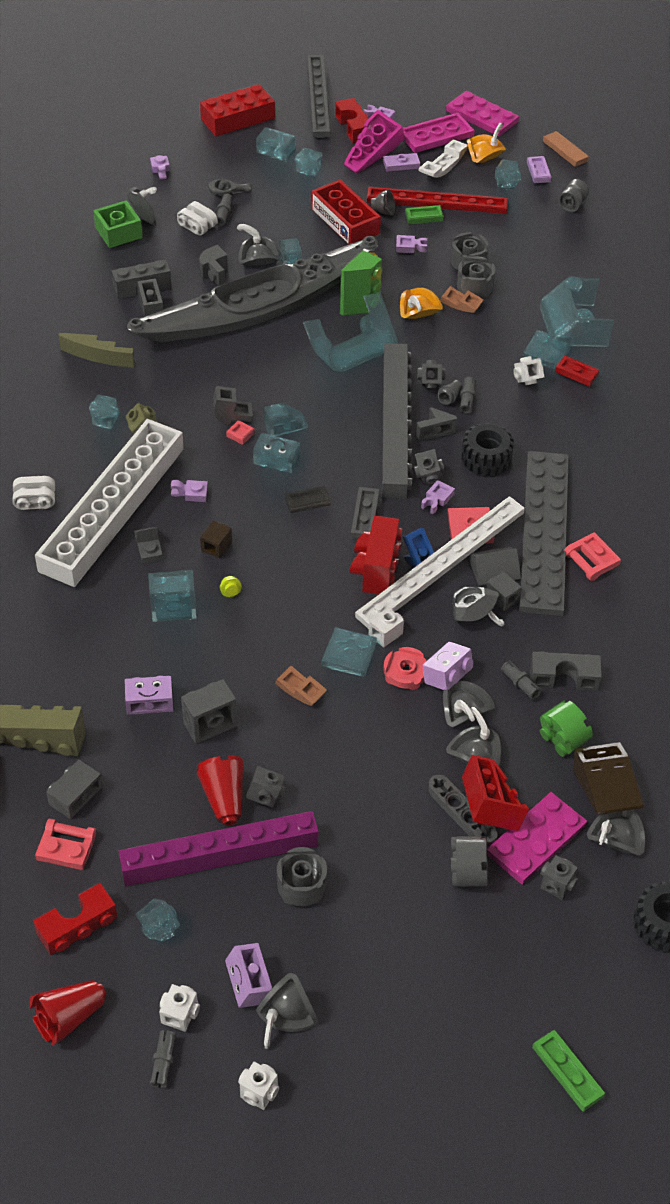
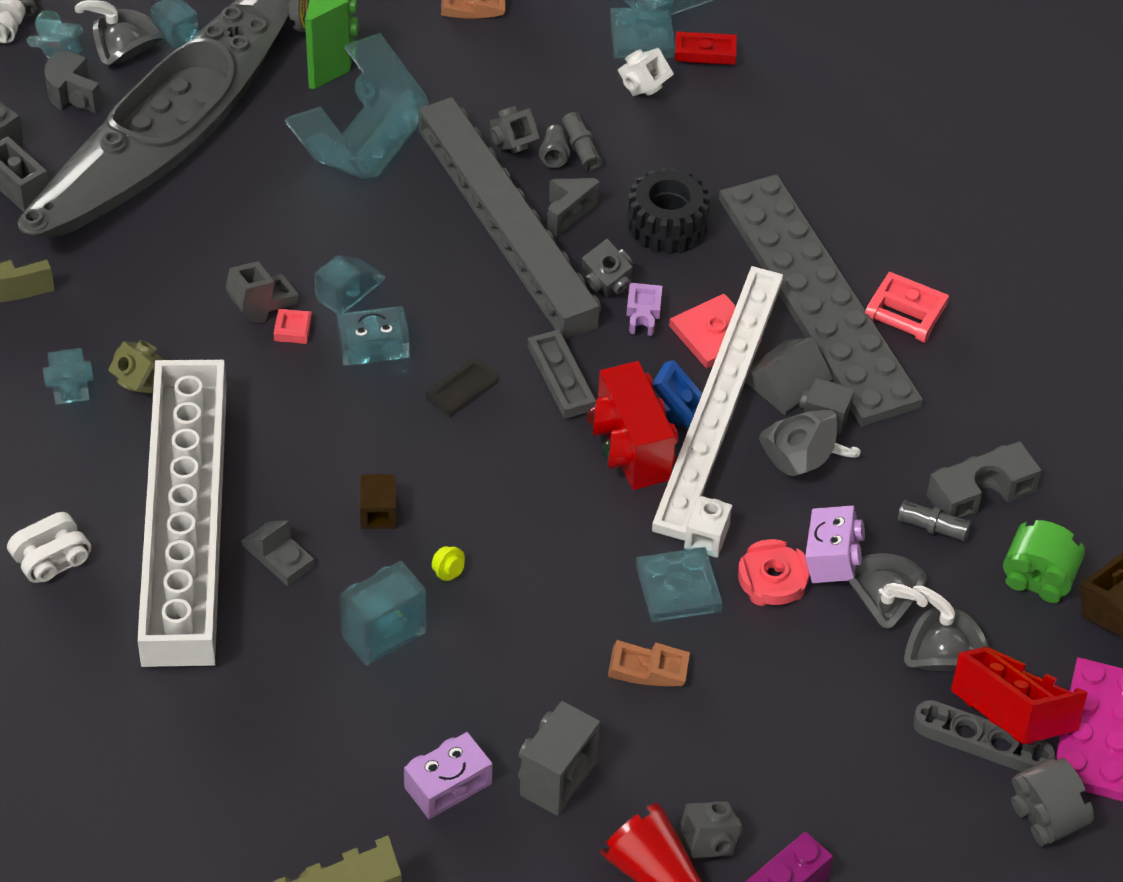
camera: 30 degrees left, 0 degrees up
(192, 491) = (286, 442): lavender plate -> none
(220, 236) = (55, 35): none -> clear light blue hips
(419, 303) = (418, 28): light orange hat -> none

